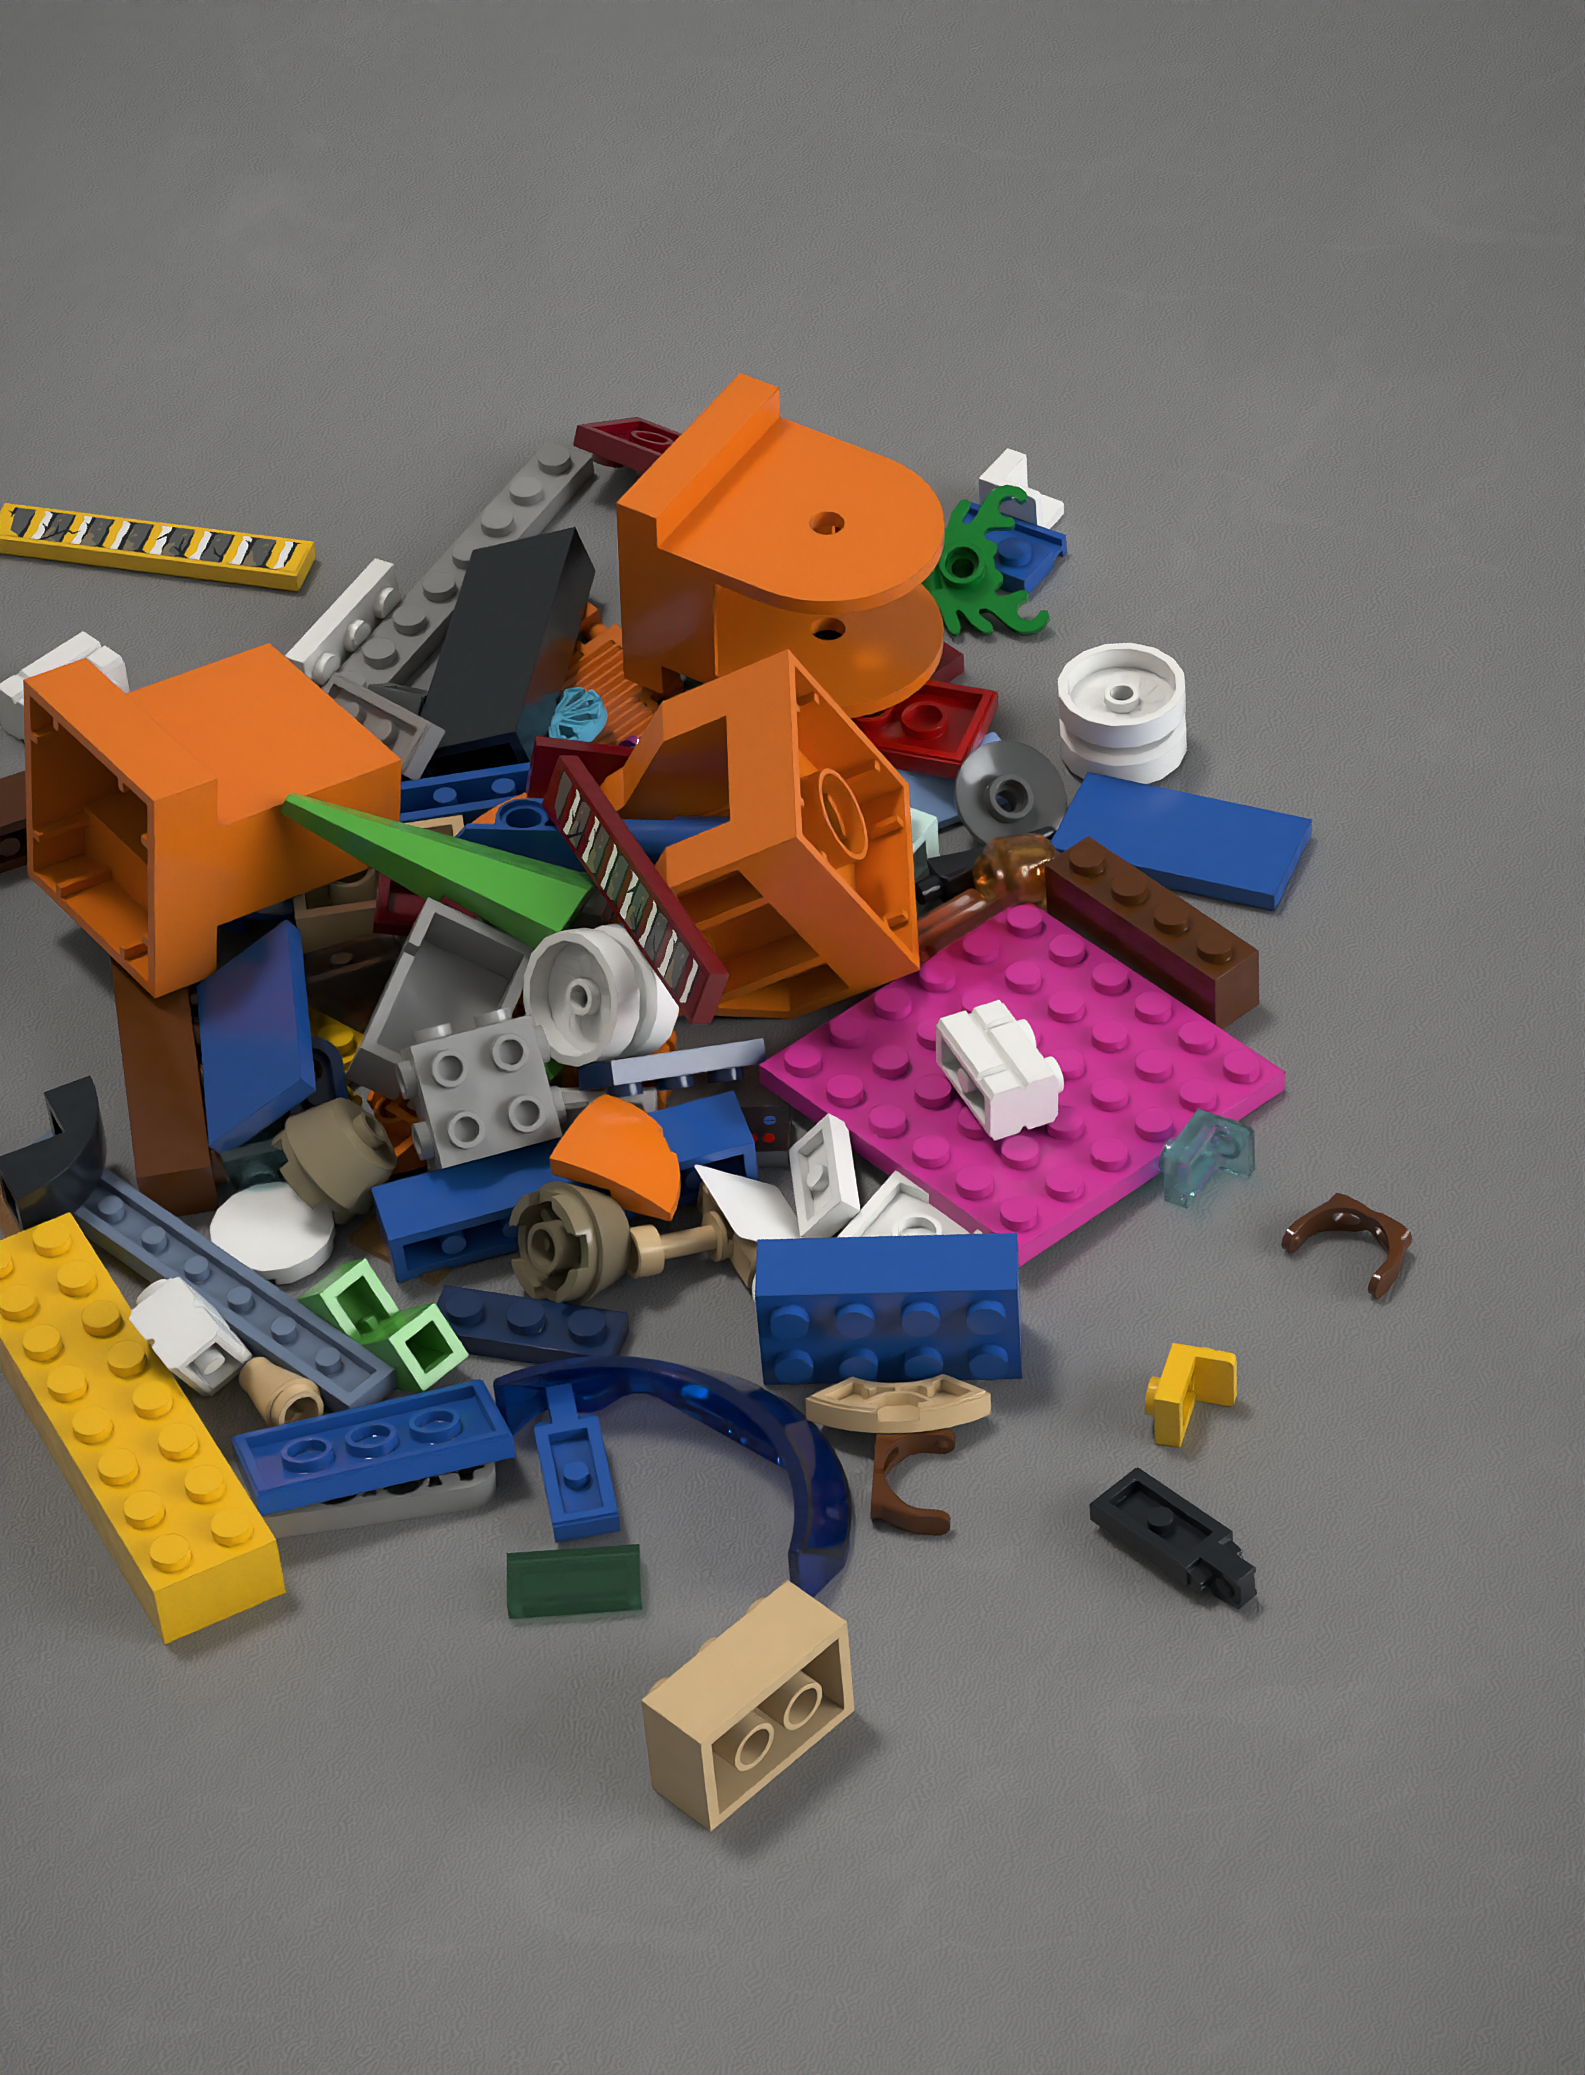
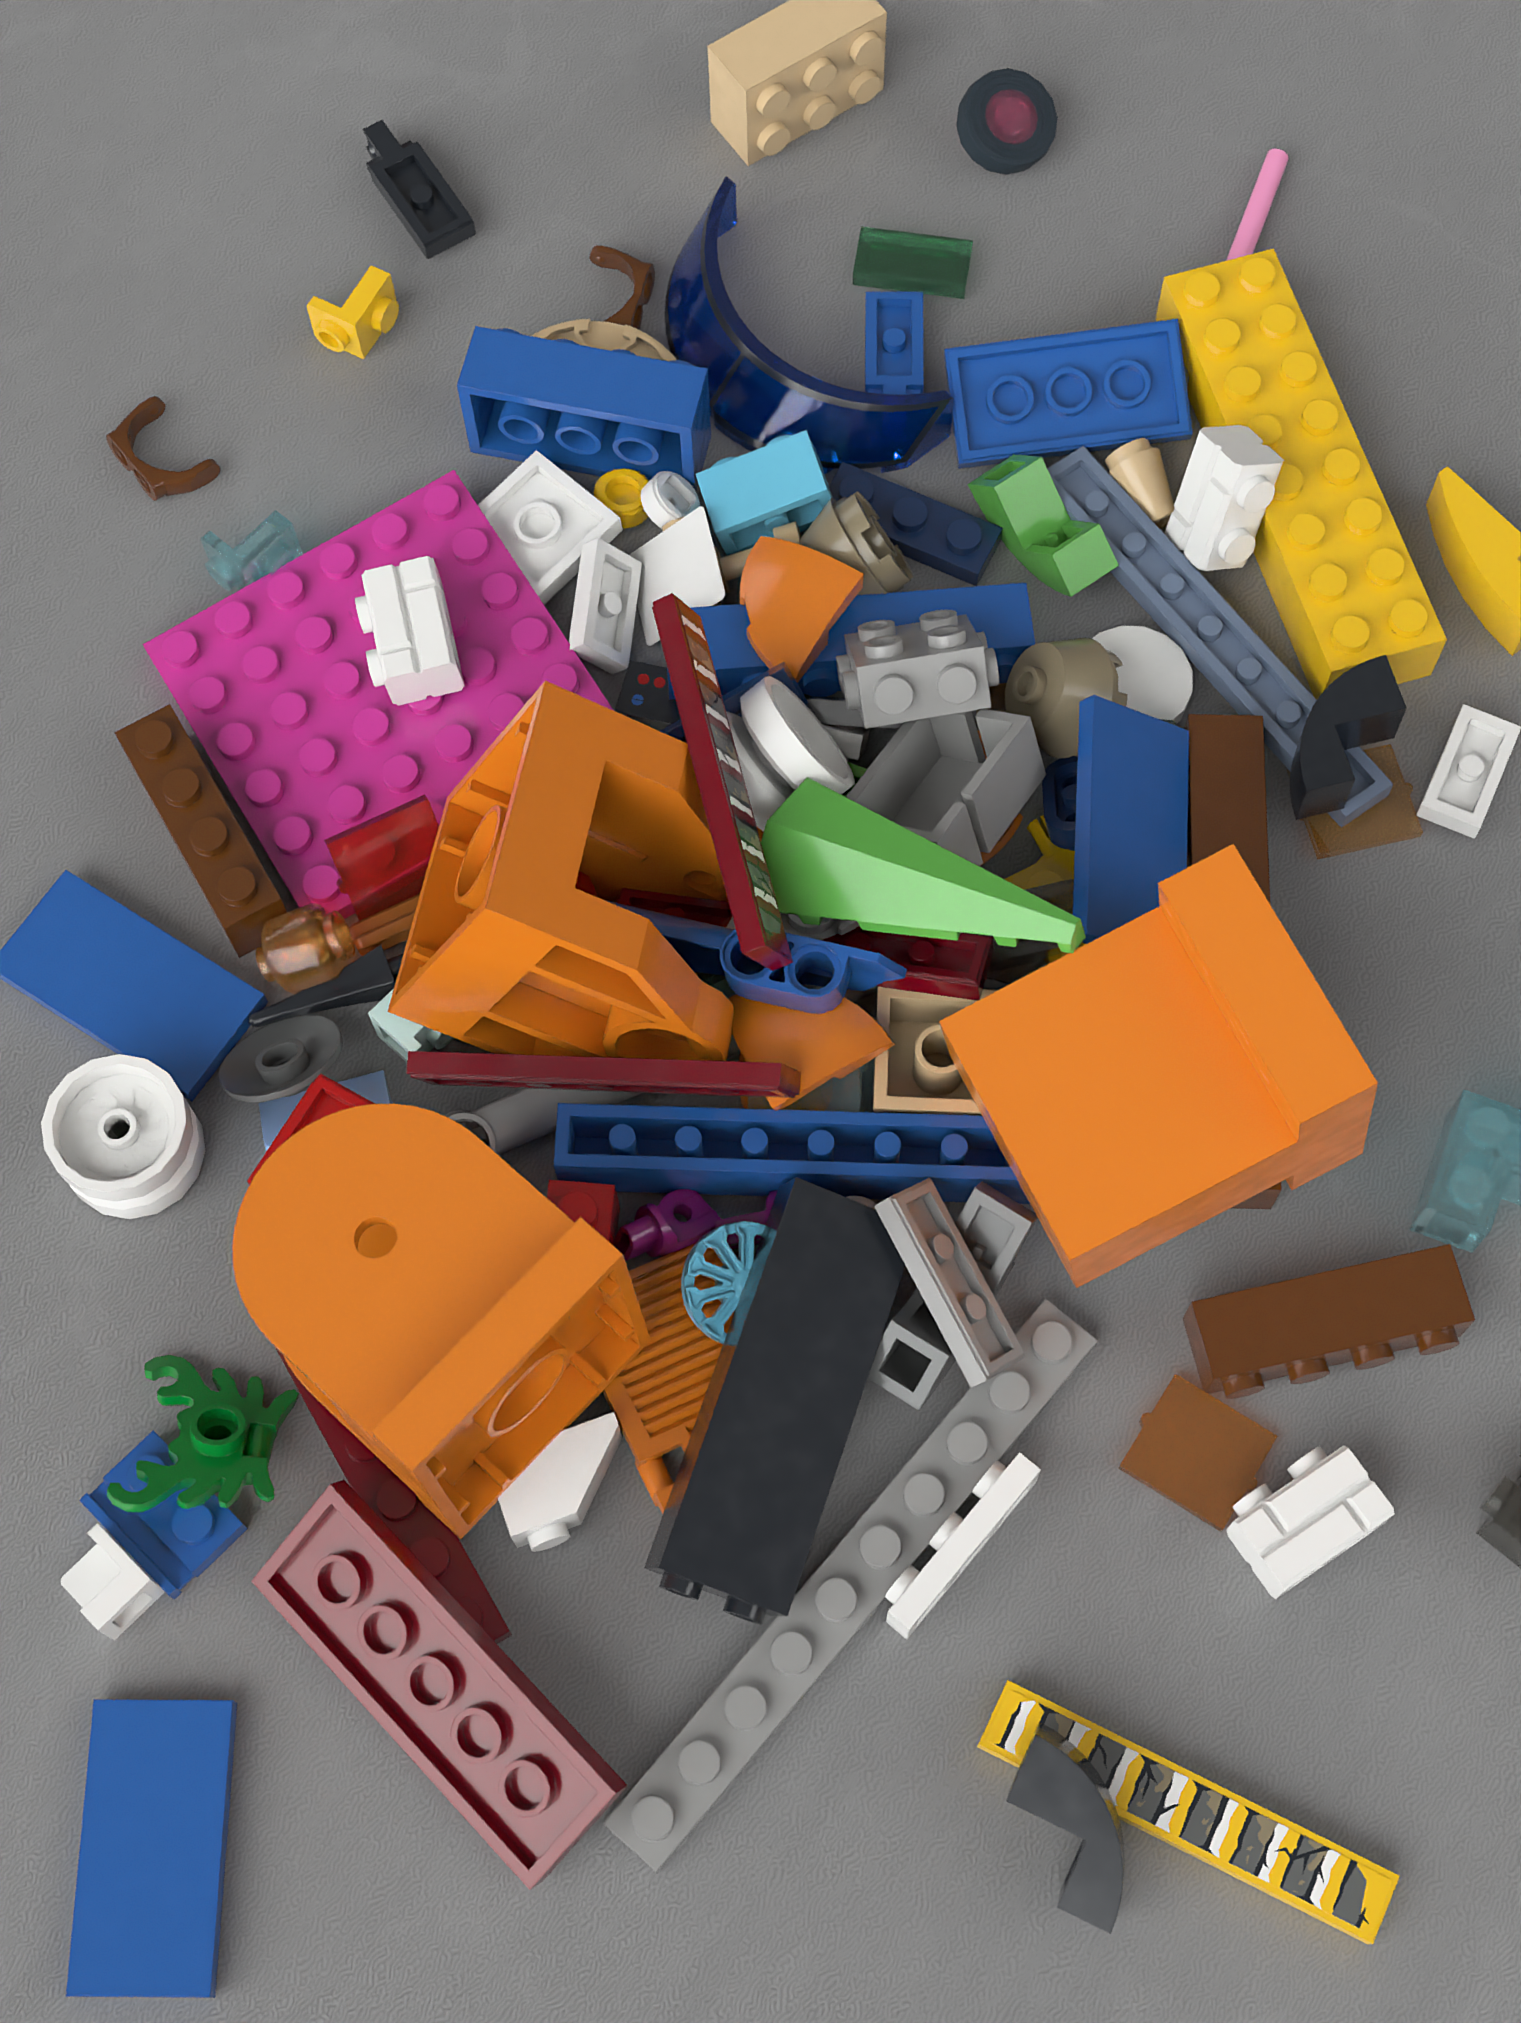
camera: 170 degrees left, 25 degrees up
(180, 1704) = (1259, 204): none -> bright pink bar
(237, 505) = (1068, 1792): none -> black brick
(487, 1727) = (1006, 121): none -> black wheel
(678, 1290) = (764, 491): none -> medium azure brick
(929, 395) = (153, 1849): none -> blue tile

